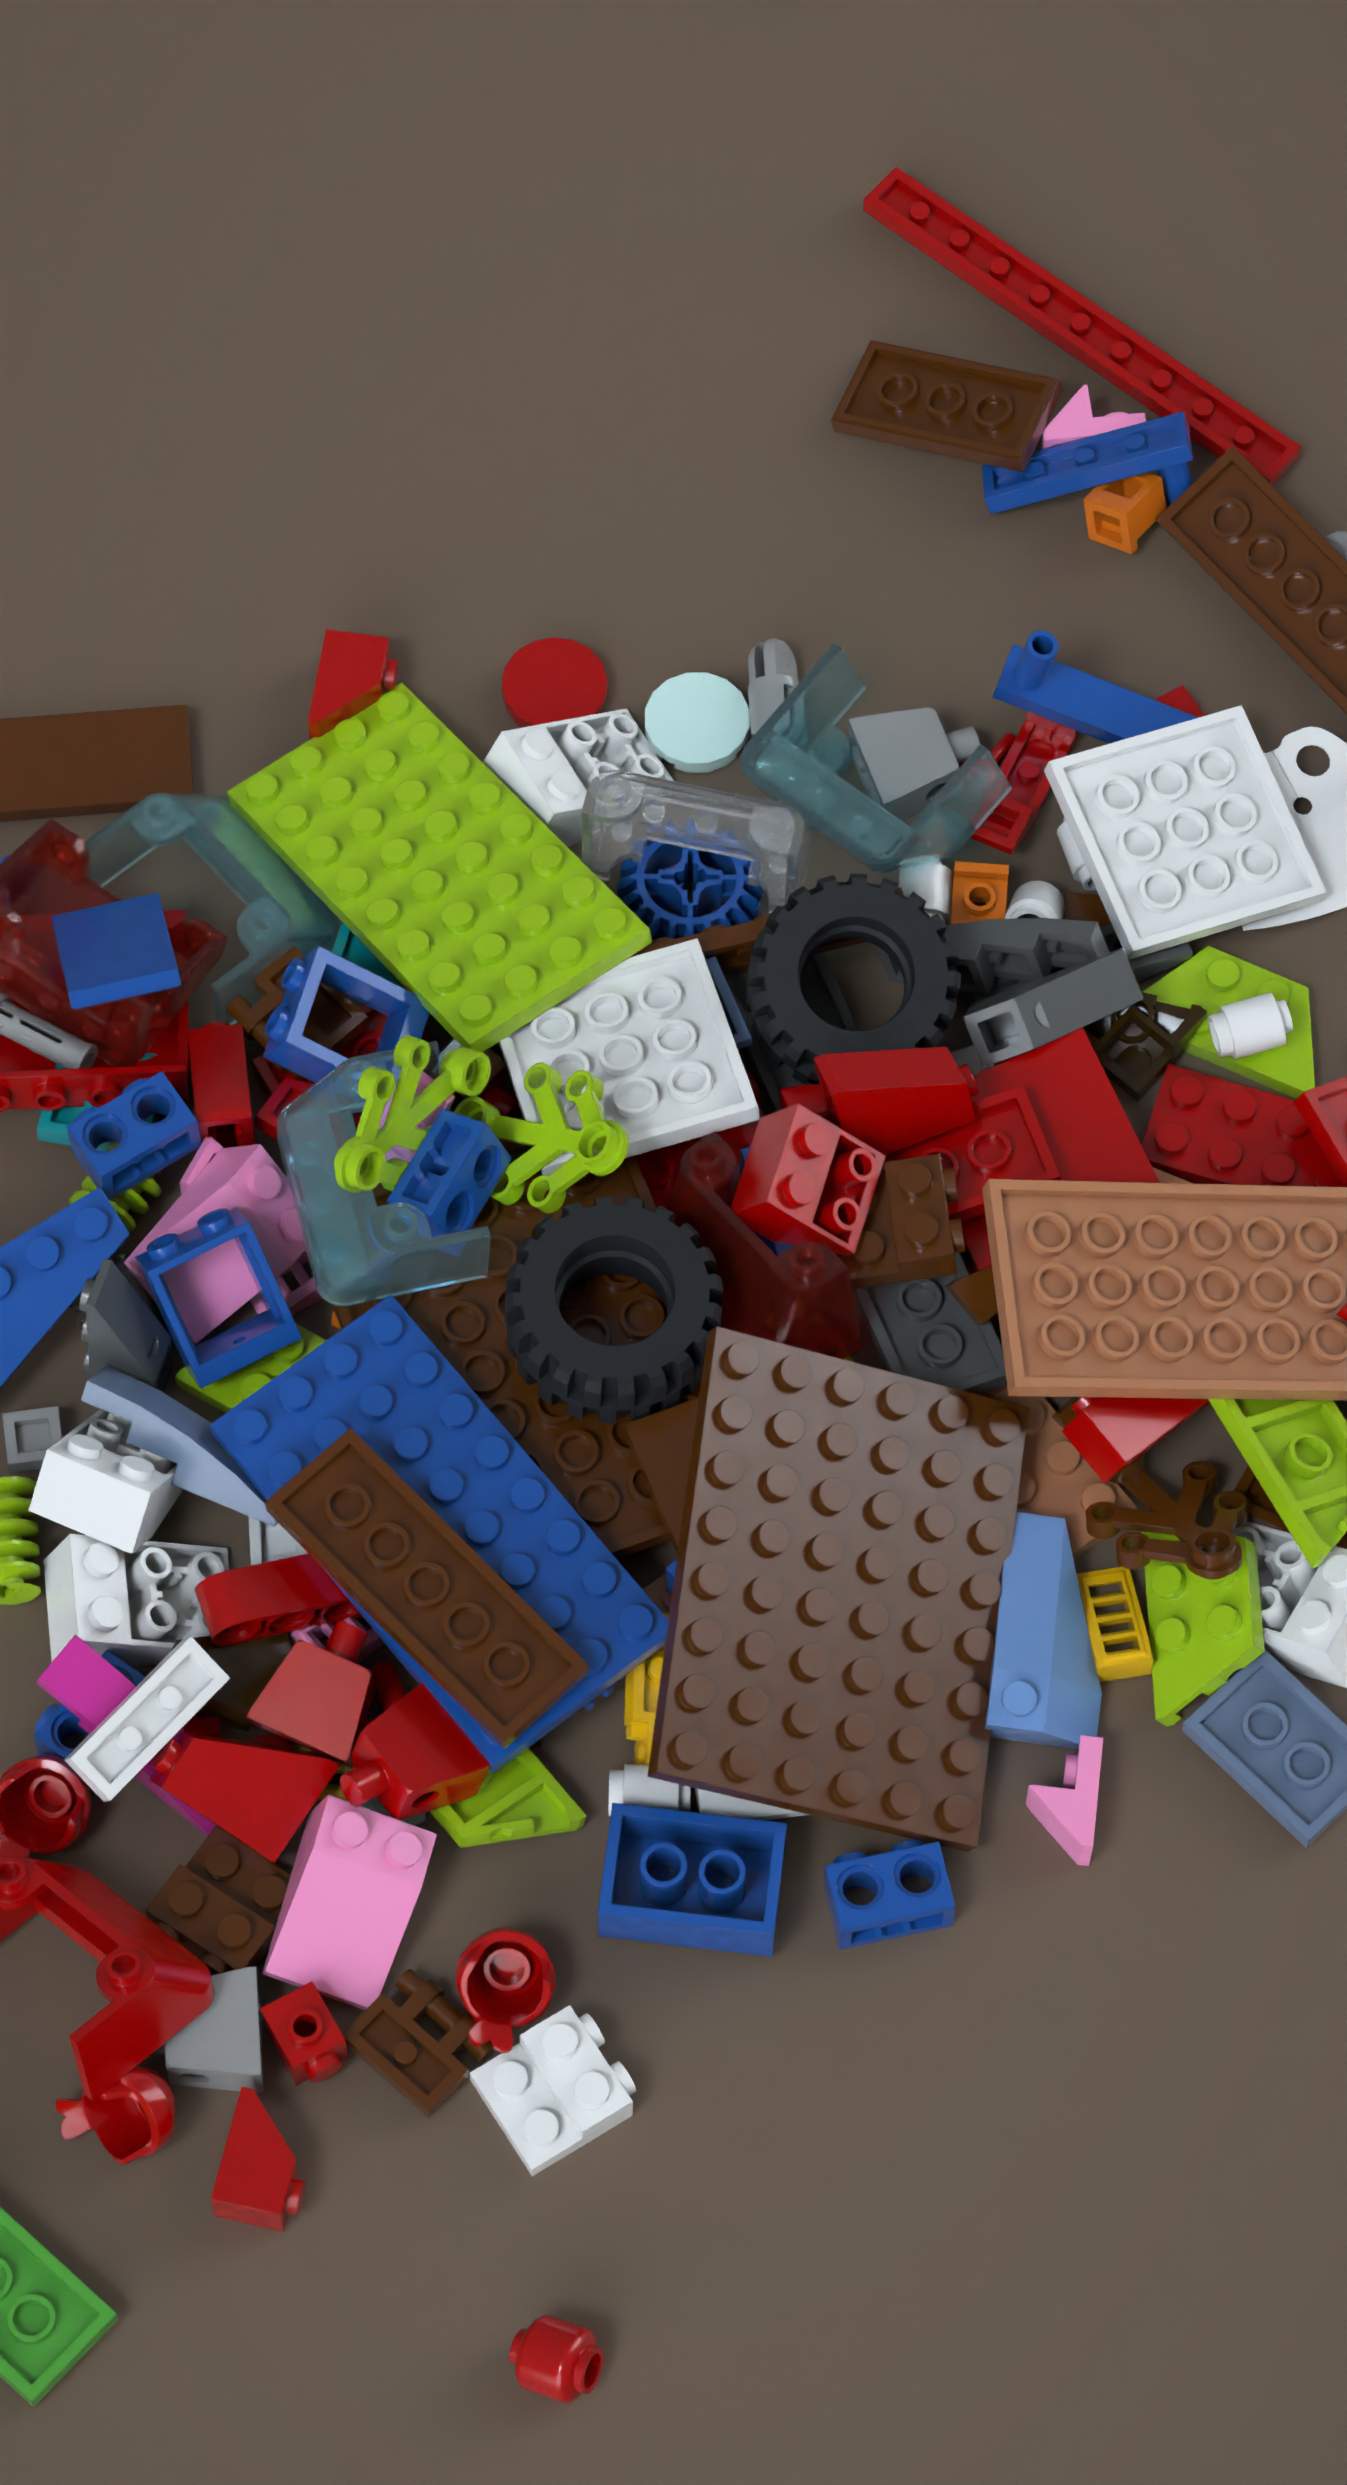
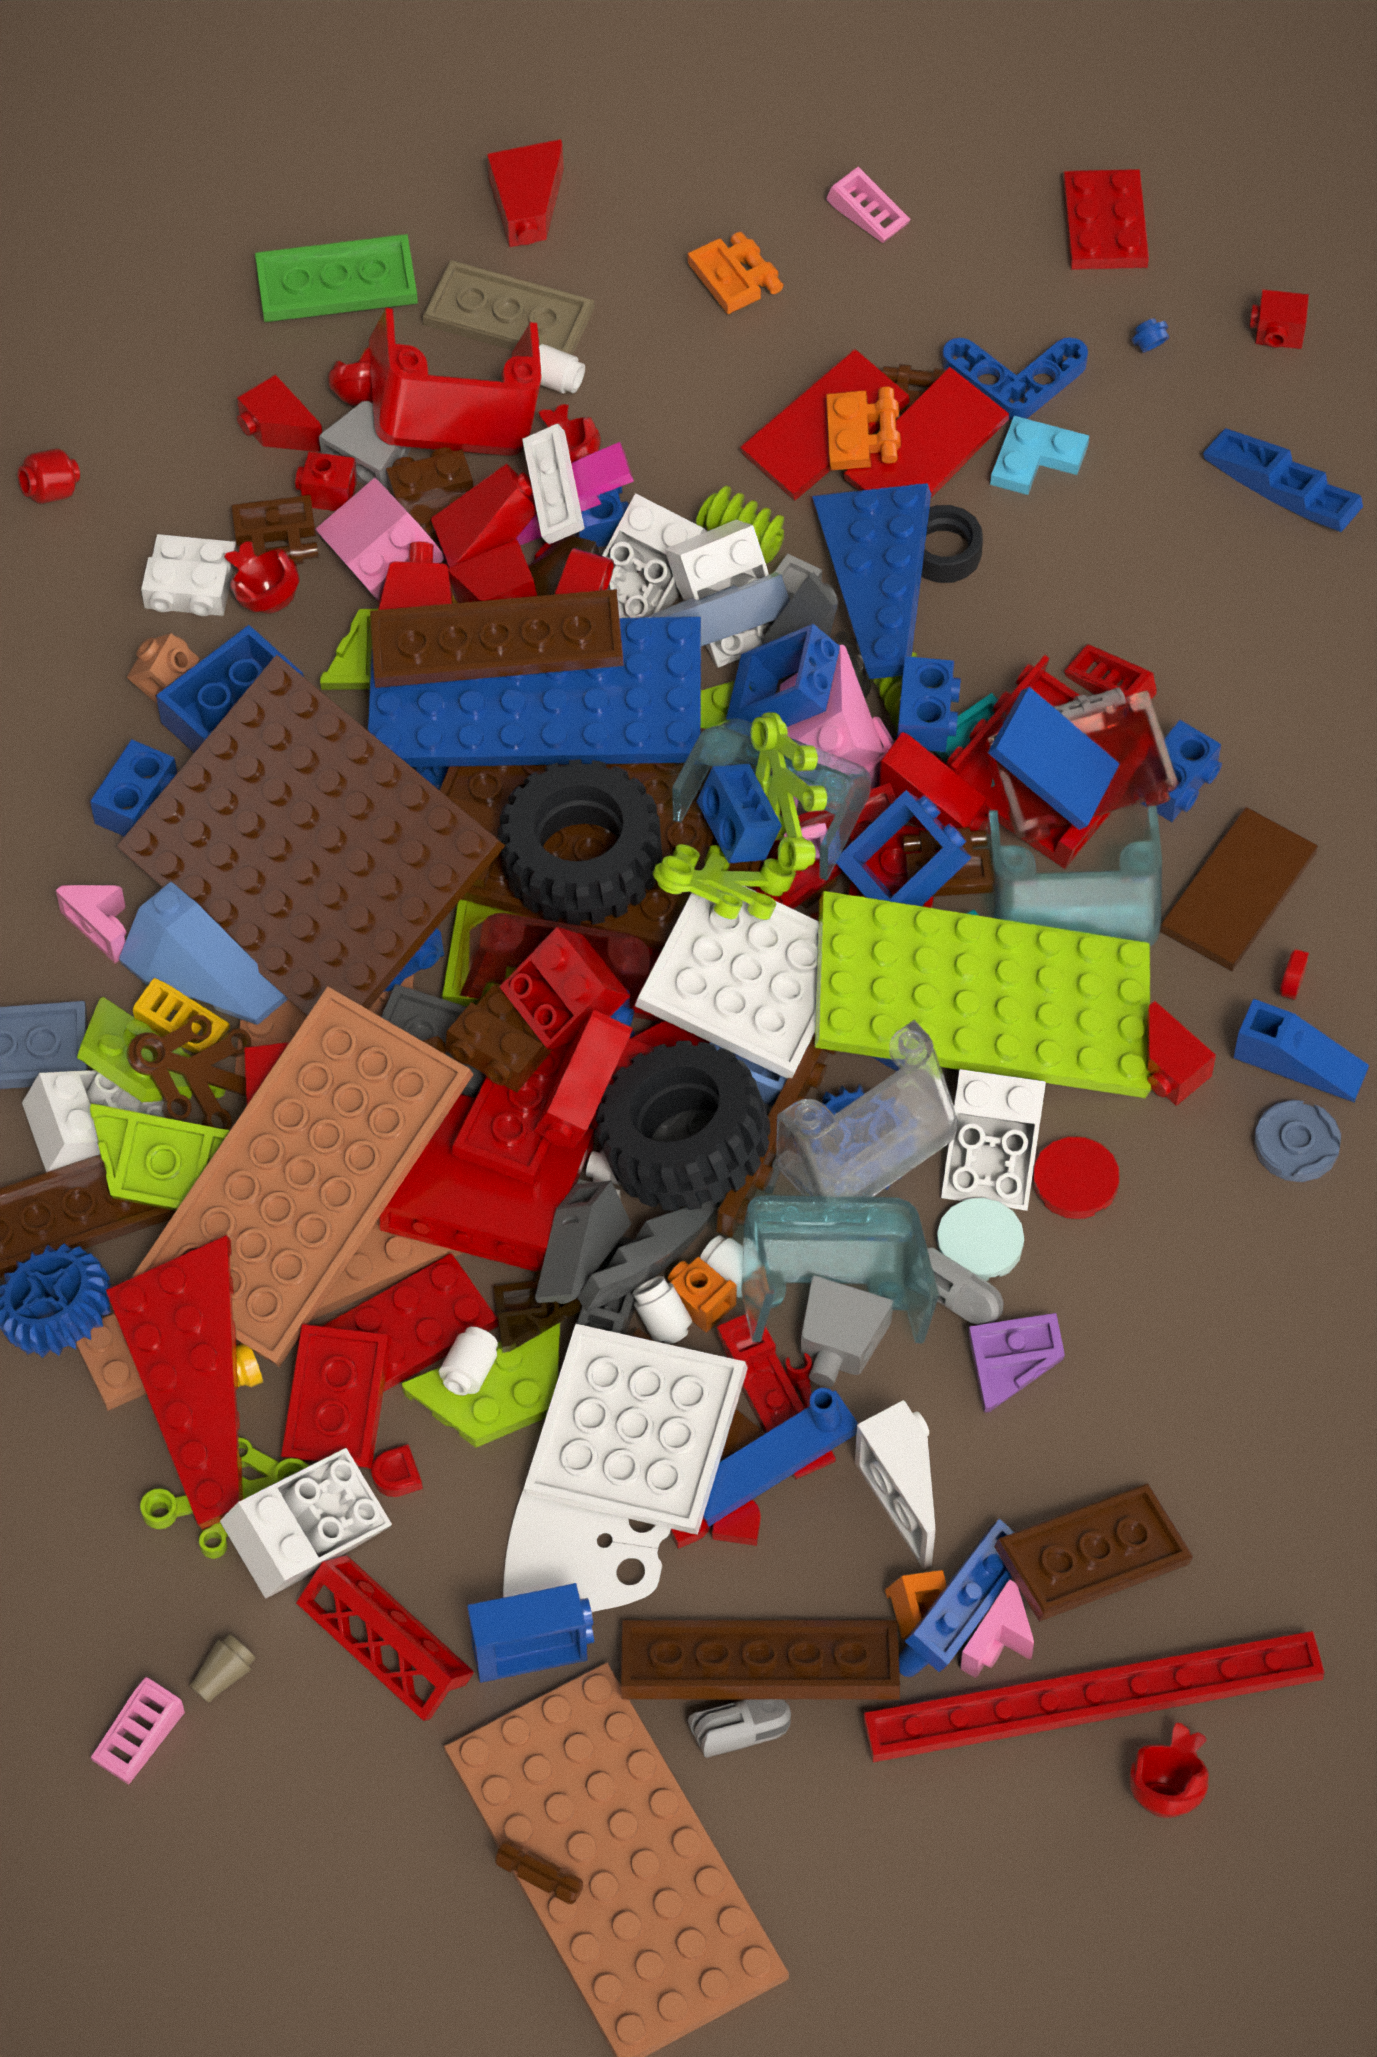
camera: 130 degrees right, 5 degrees down
(158, 641) = (1294, 974): none -> red tile
(253, 582) = (1298, 1051): none -> blue slope
(344, 534) = (1297, 1141): none -> sand blue tile
(711, 1992) = (161, 663): none -> nougat brick
(798, 607) = (1013, 1355): none -> medium lavender wing
(1020, 584) = (896, 1465): none -> white slope
(1105, 213) = (1170, 1777): none -> red hat

